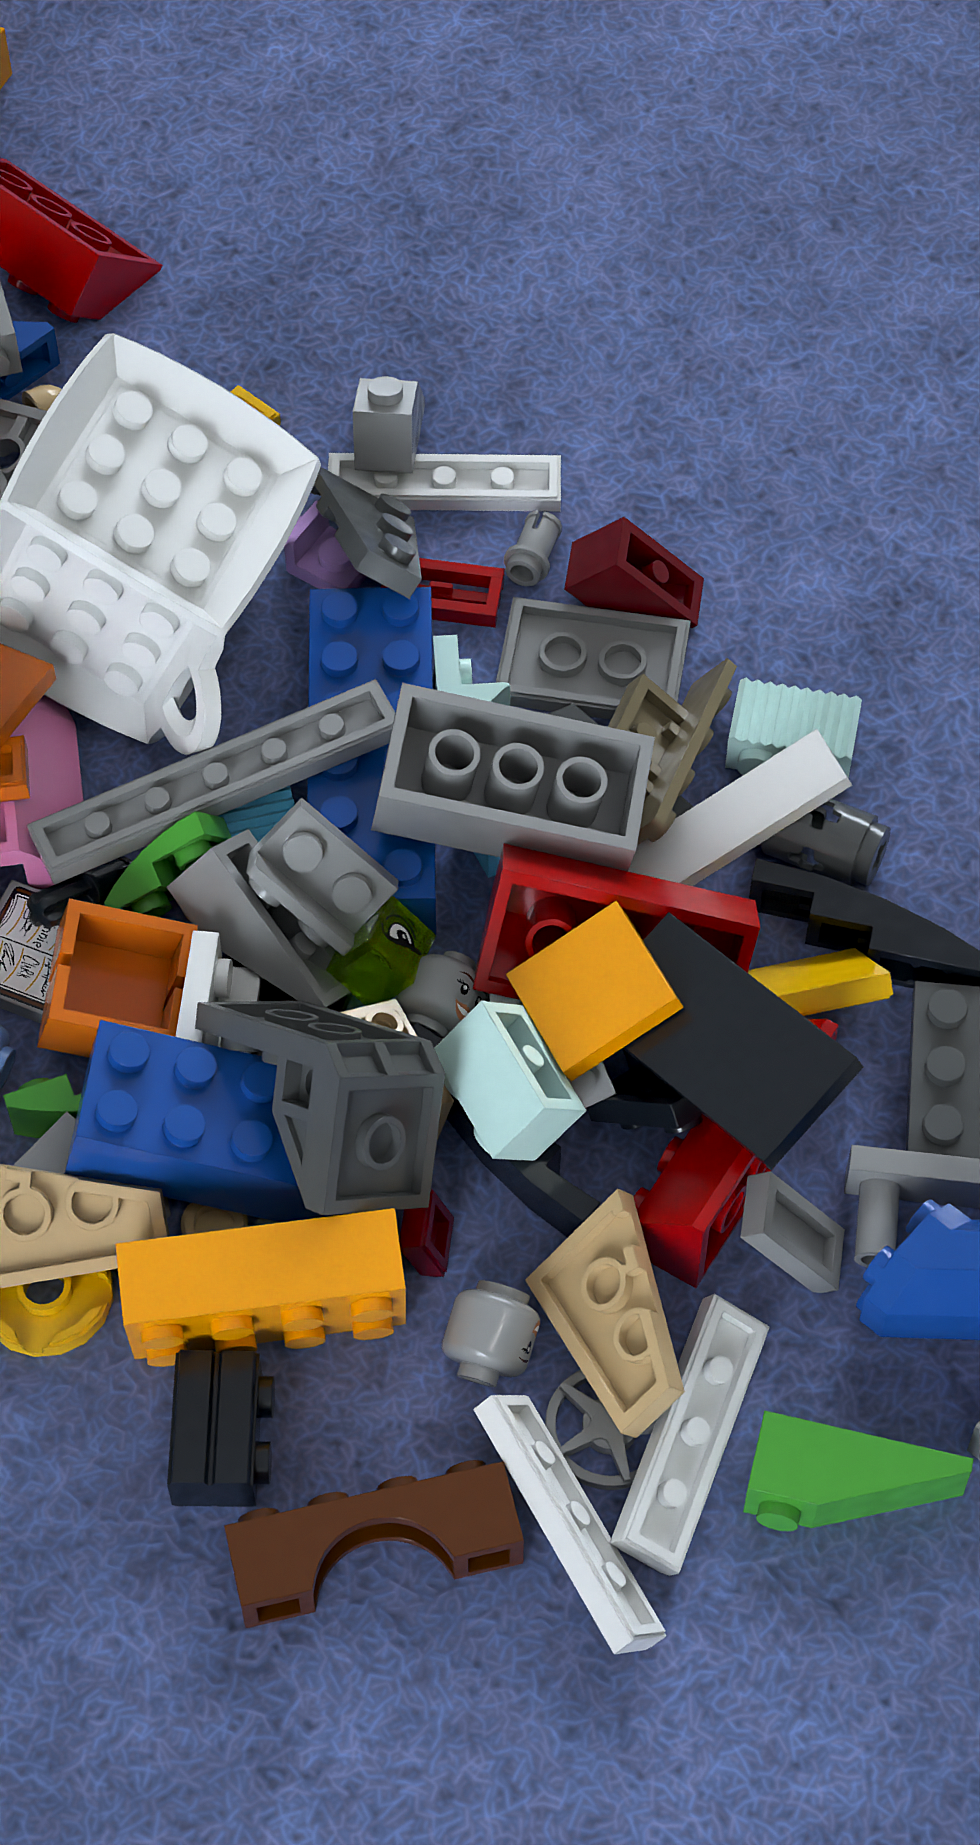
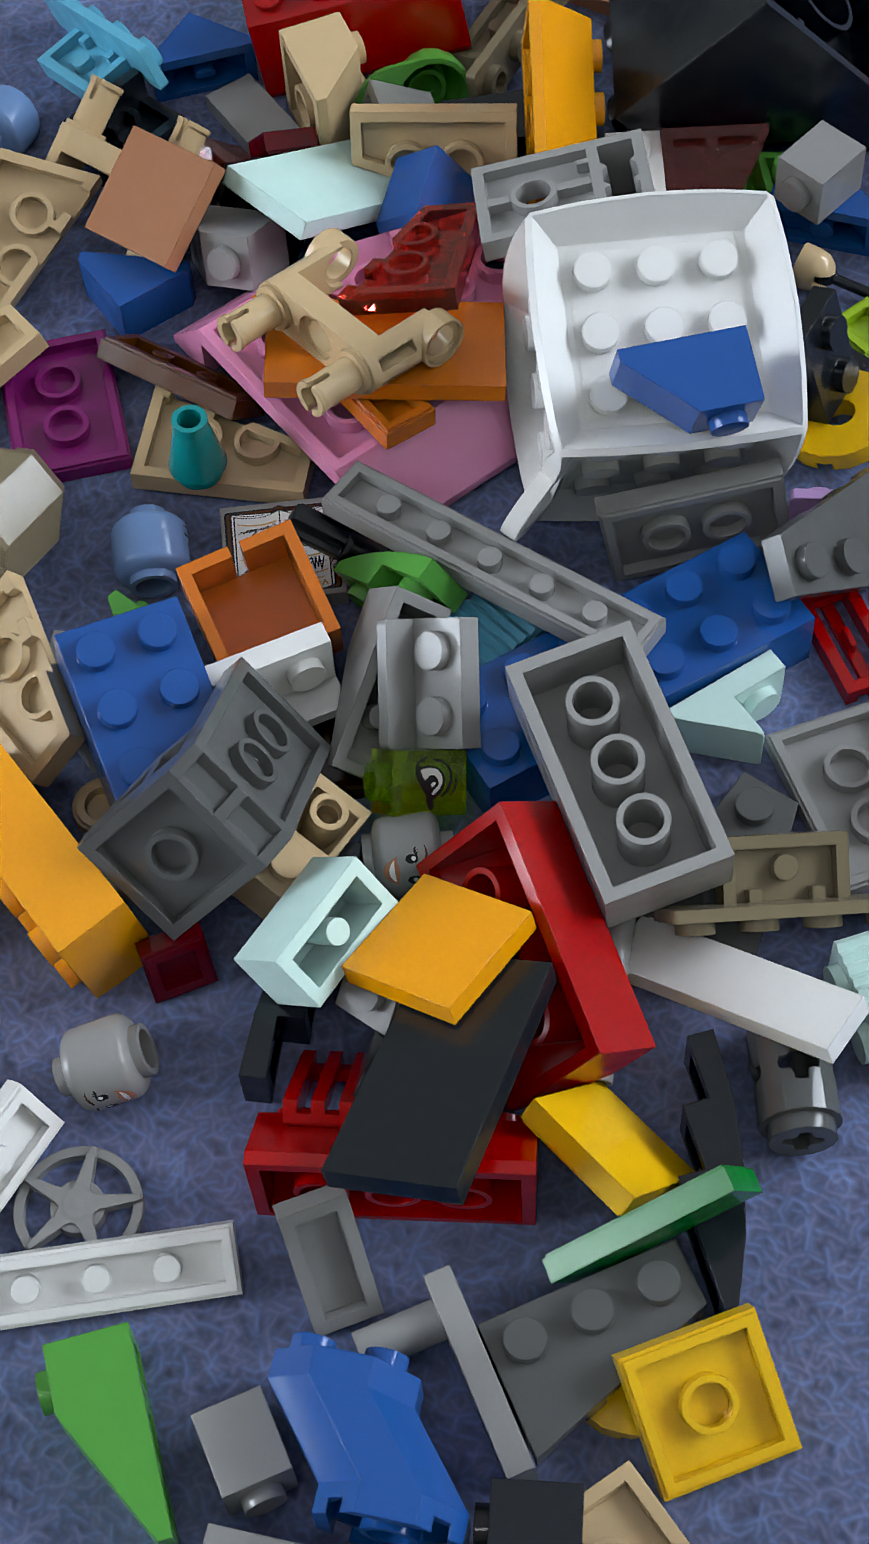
camera: 65 degrees right, 0 degrees up
(246, 492) = (694, 380): none -> blue slope
(273, 621) = (678, 519): none -> light grey tile
(611, 1315) = (159, 1145): tan wing -> none
(638, 1152) = (327, 1076): none -> red tile
(908, 977) = (652, 1223): none -> tile
(918, 1382) = (246, 1453): none -> light grey brick

